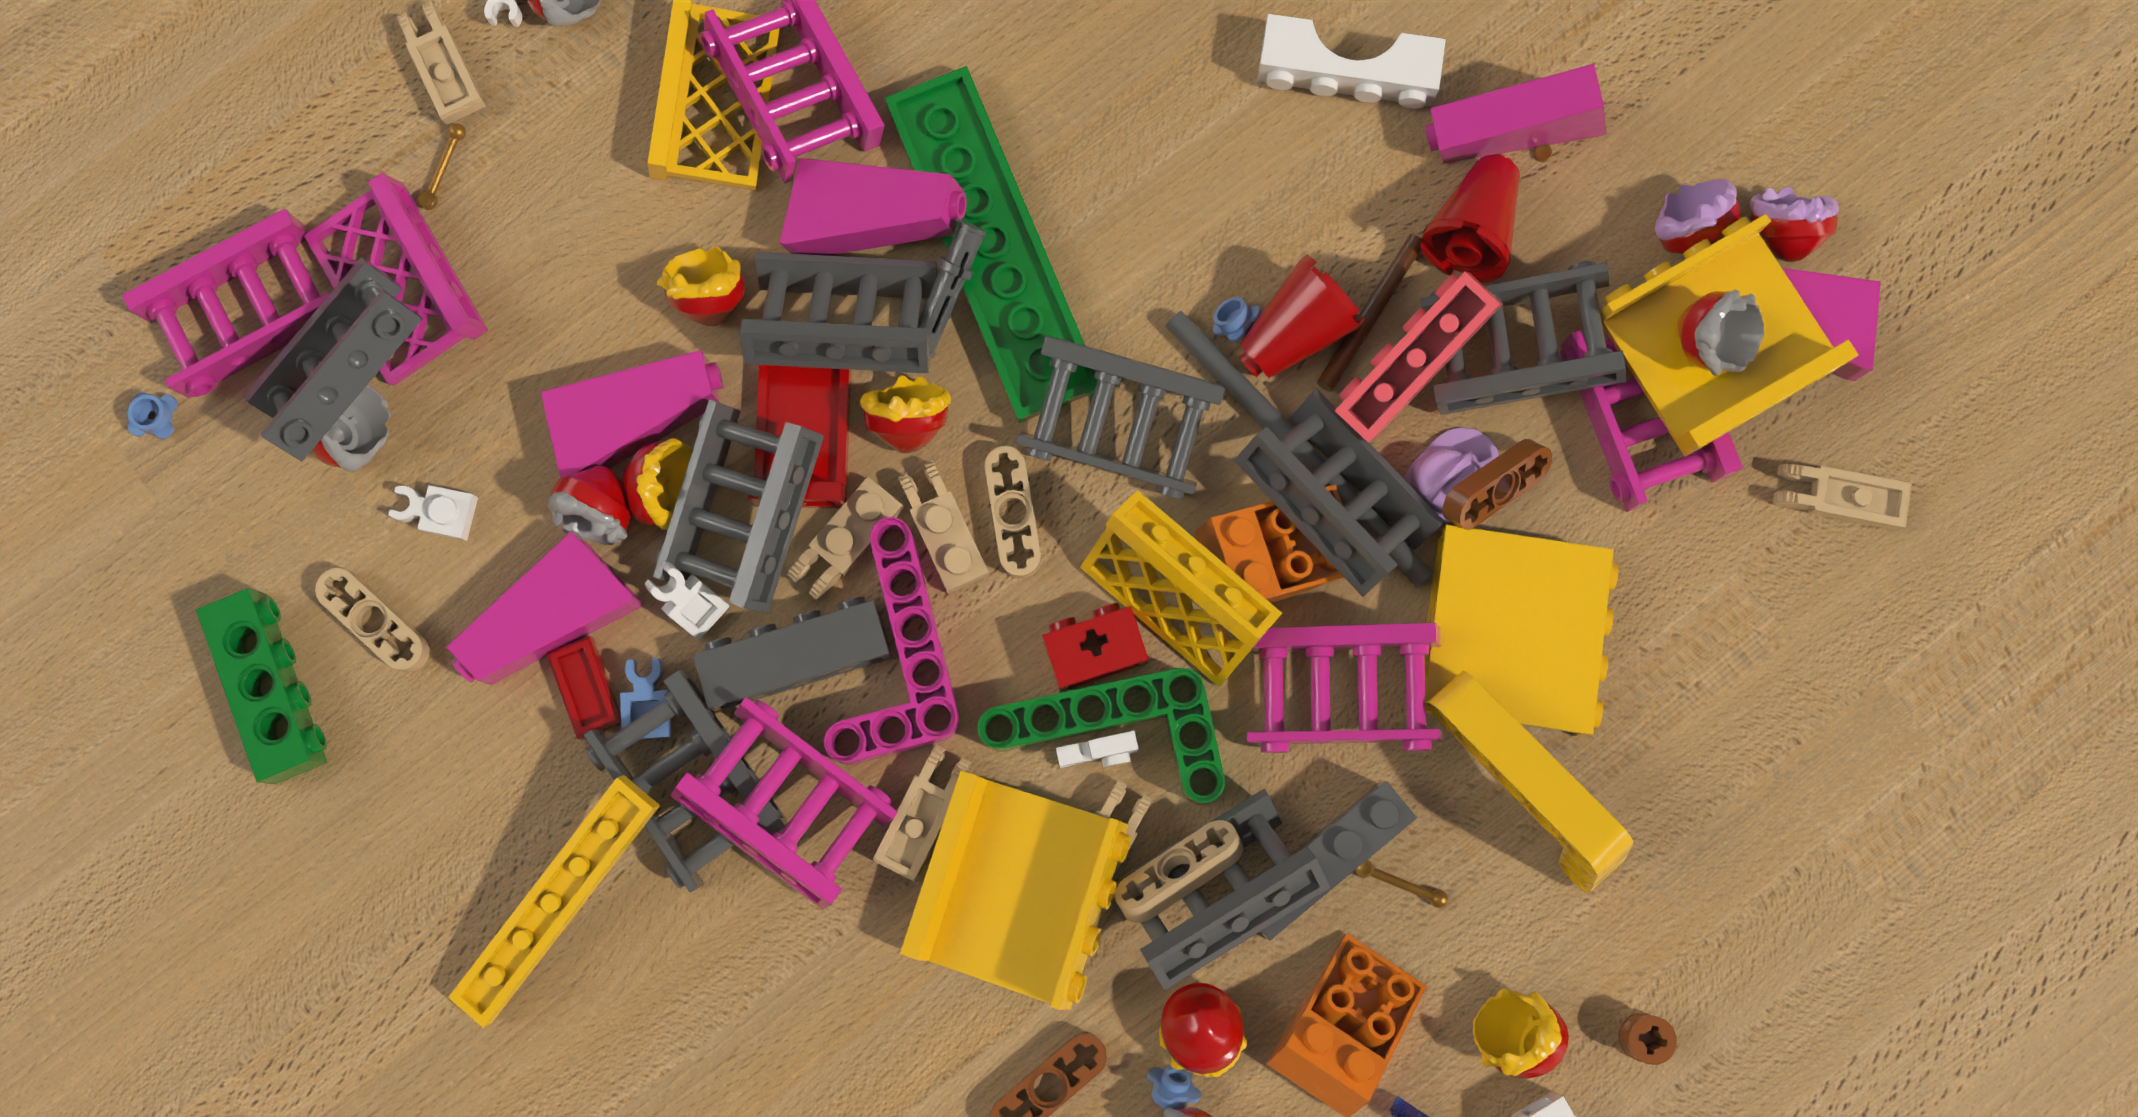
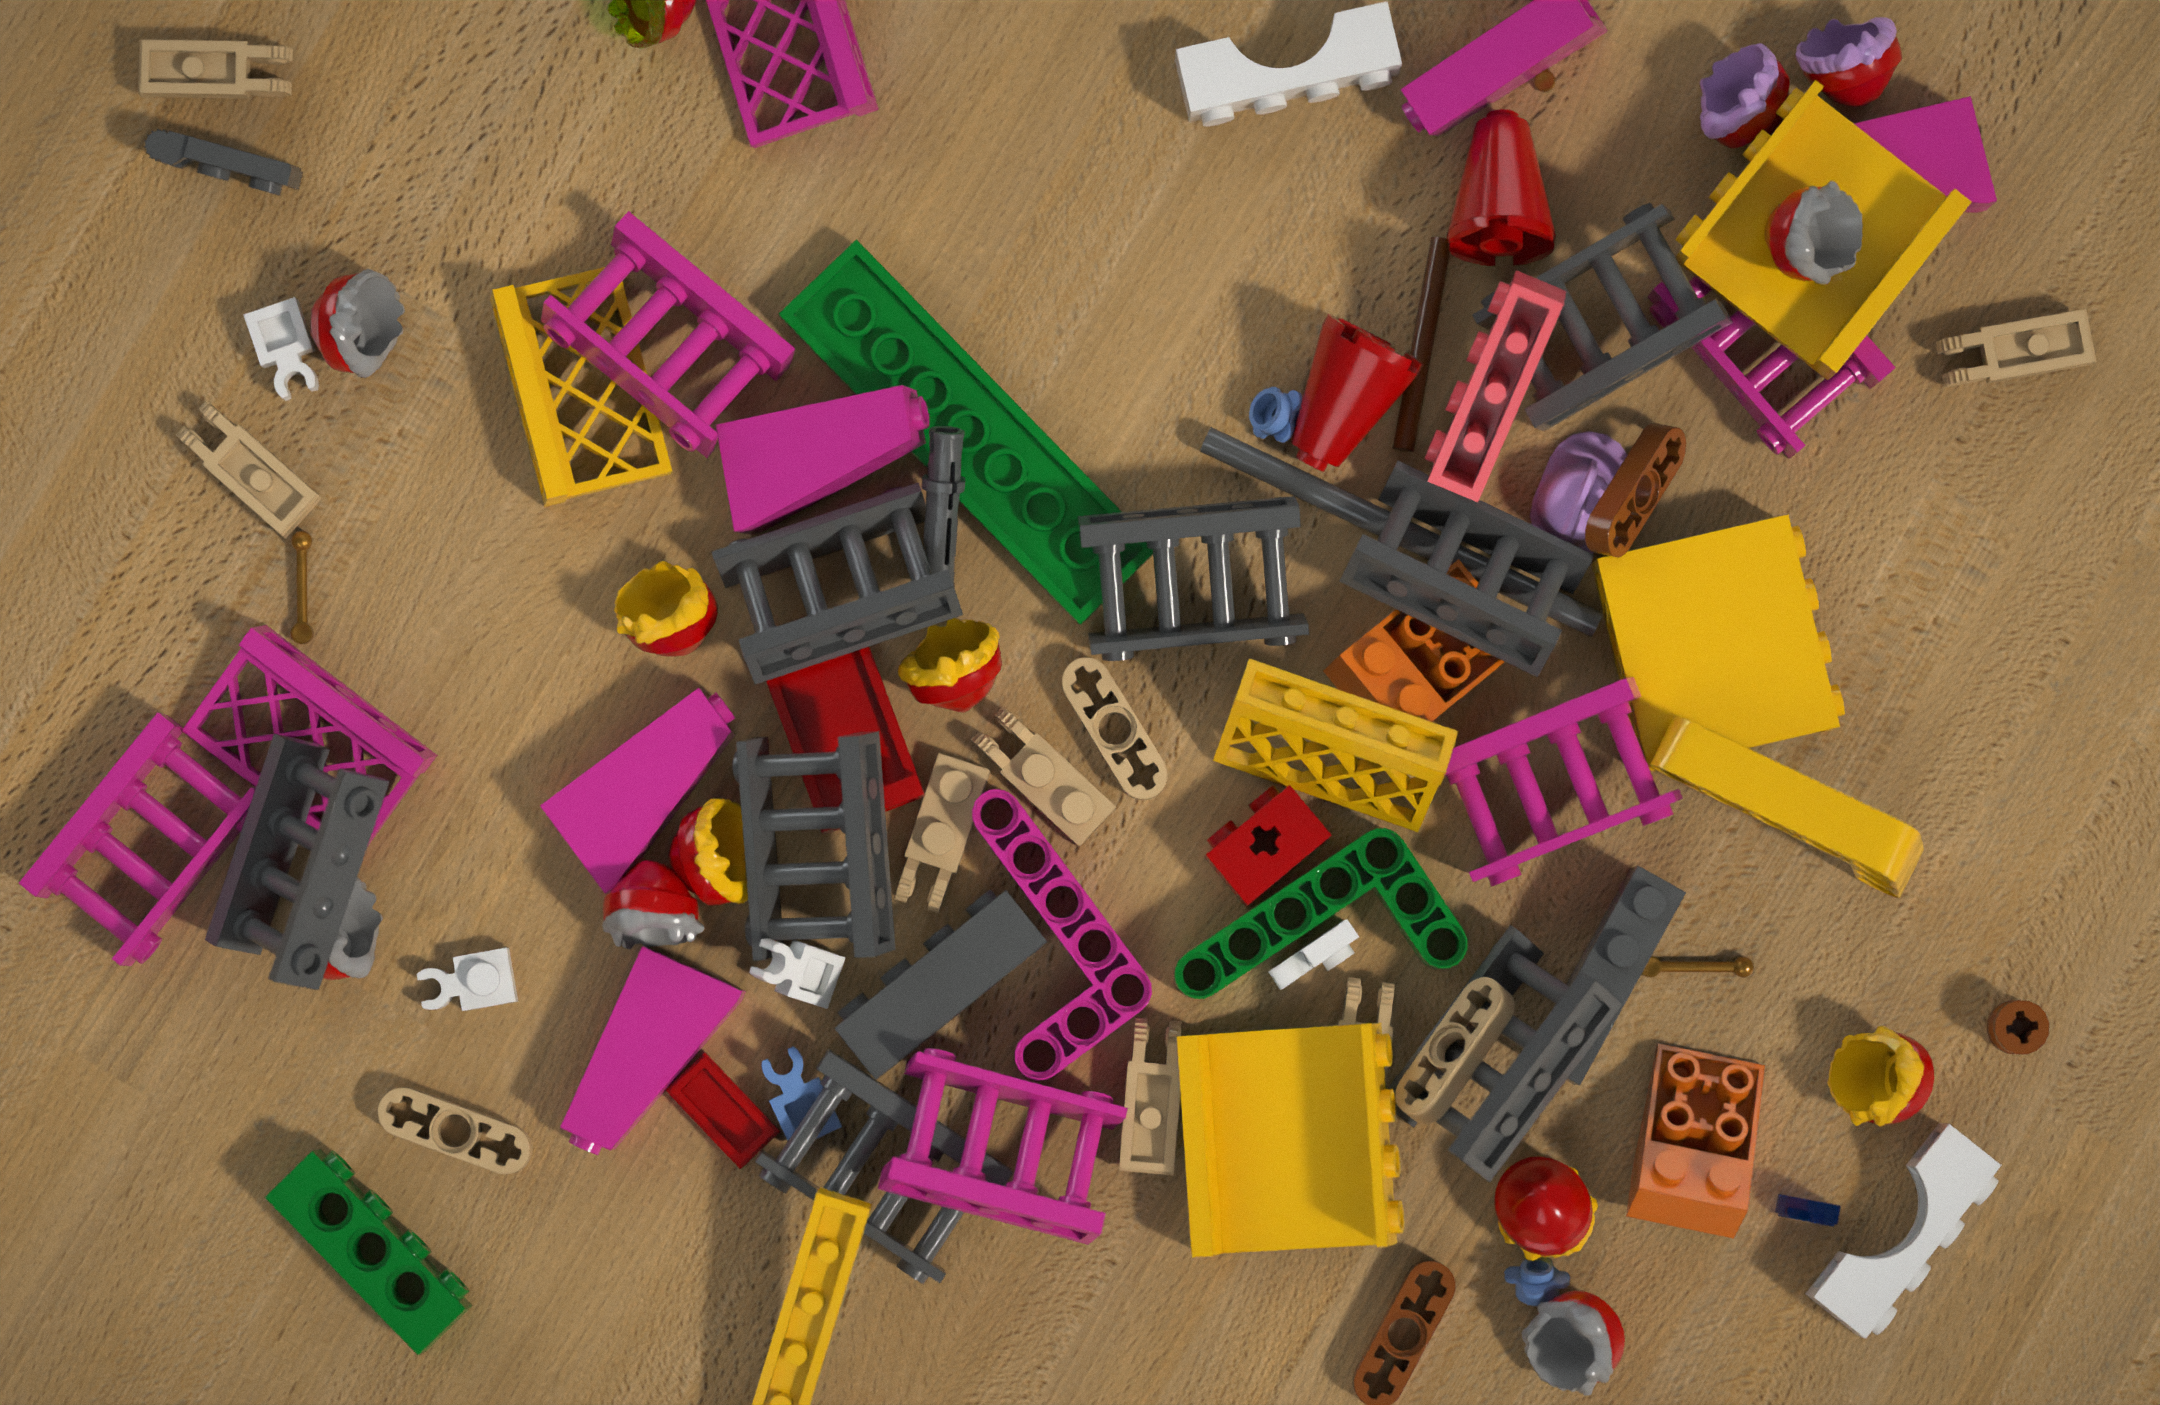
camera: 25 degrees left, 5 degrees up
(139, 415) = (88, 999): medium blue plate -> none

